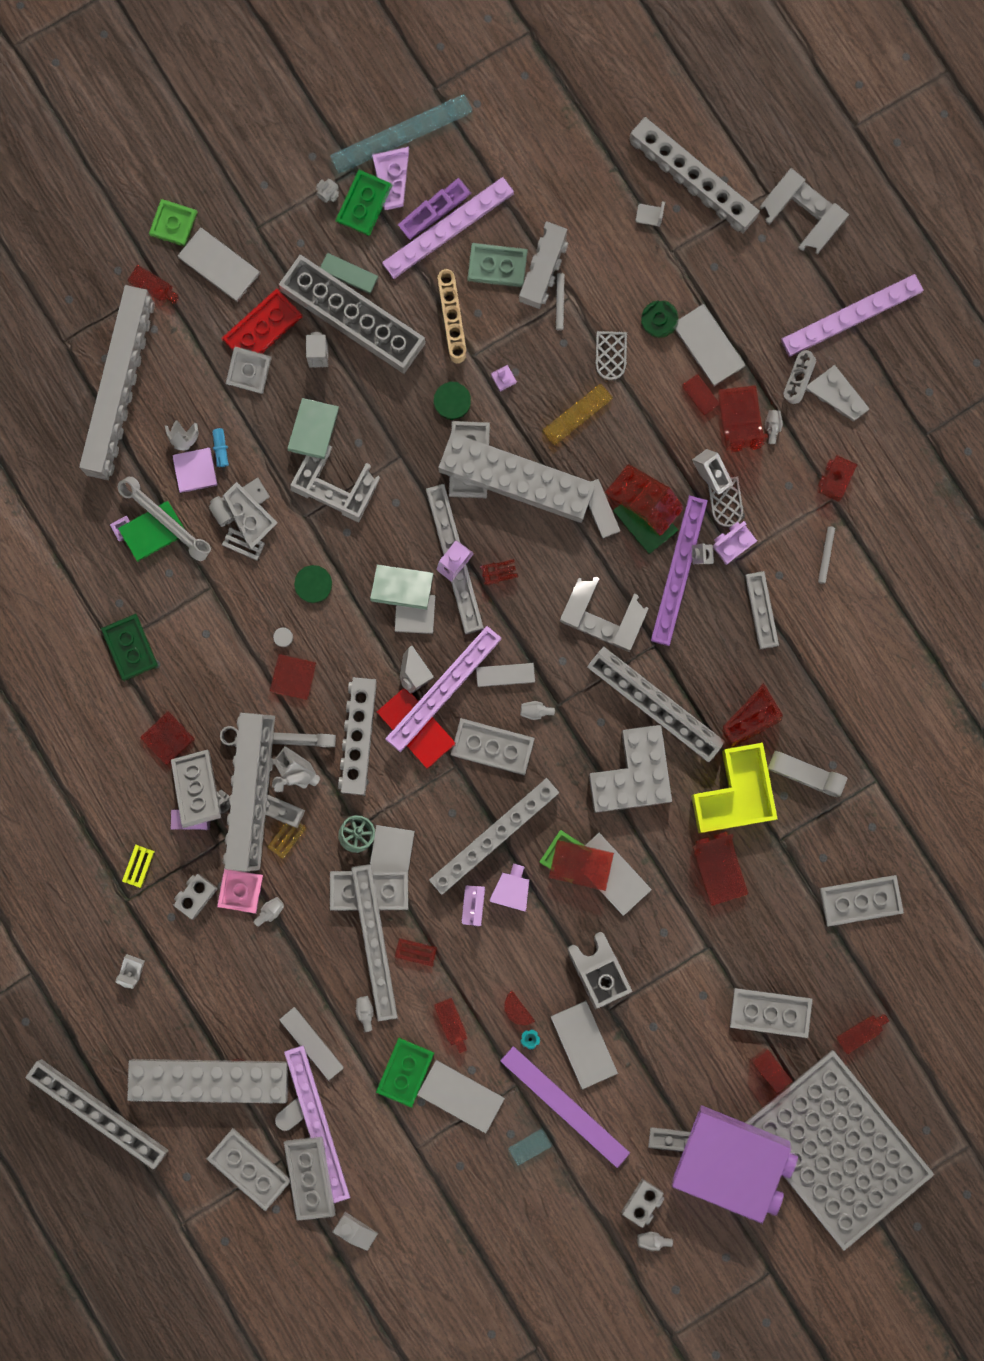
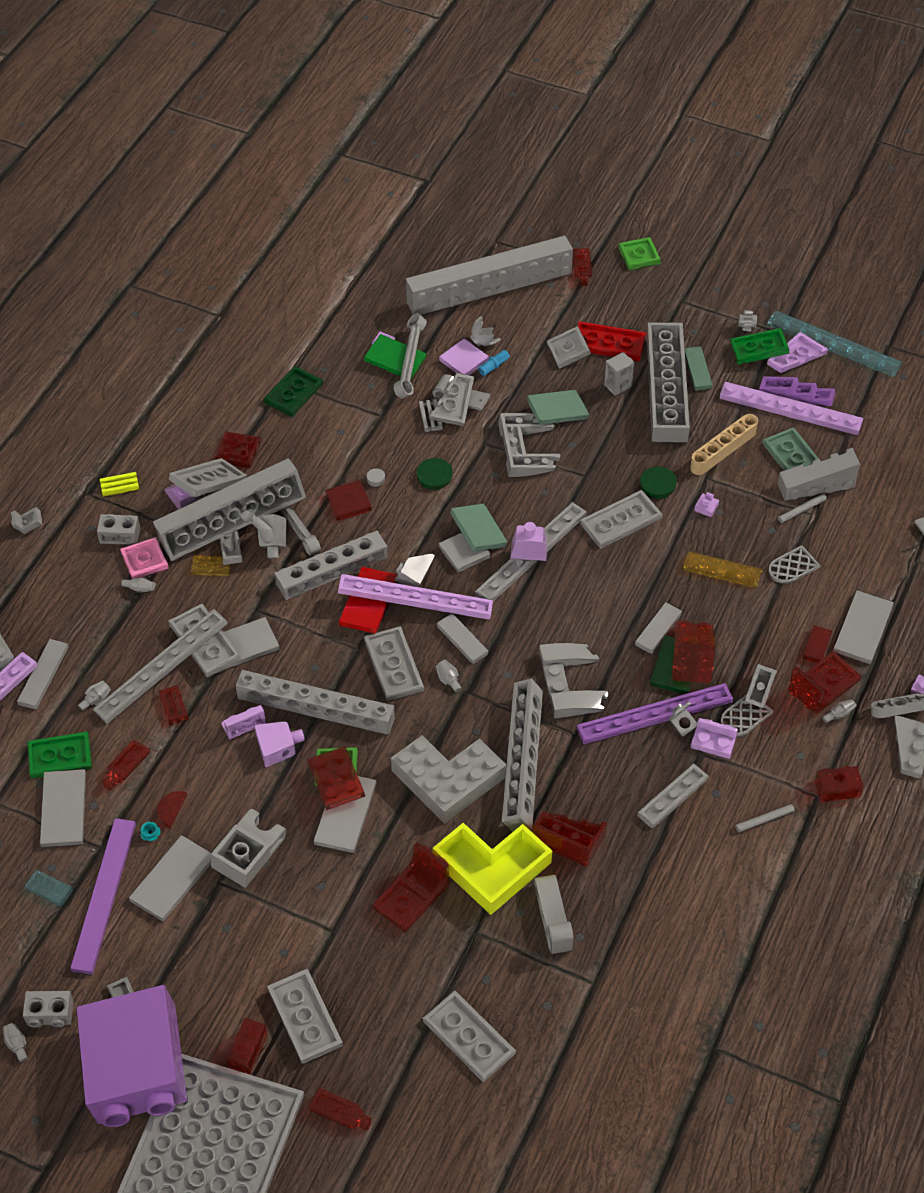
camera: 60 degrees right, 30 degrees down
(219, 264) = (632, 293): light grey tile -> none
(356, 834) = (247, 604): sand green wheel -> none
(486, 574) = (546, 585): clear red arm -> none
(516, 477) = (633, 551): light grey brick -> none
(659, 318) = (852, 579): dark green tile -> none

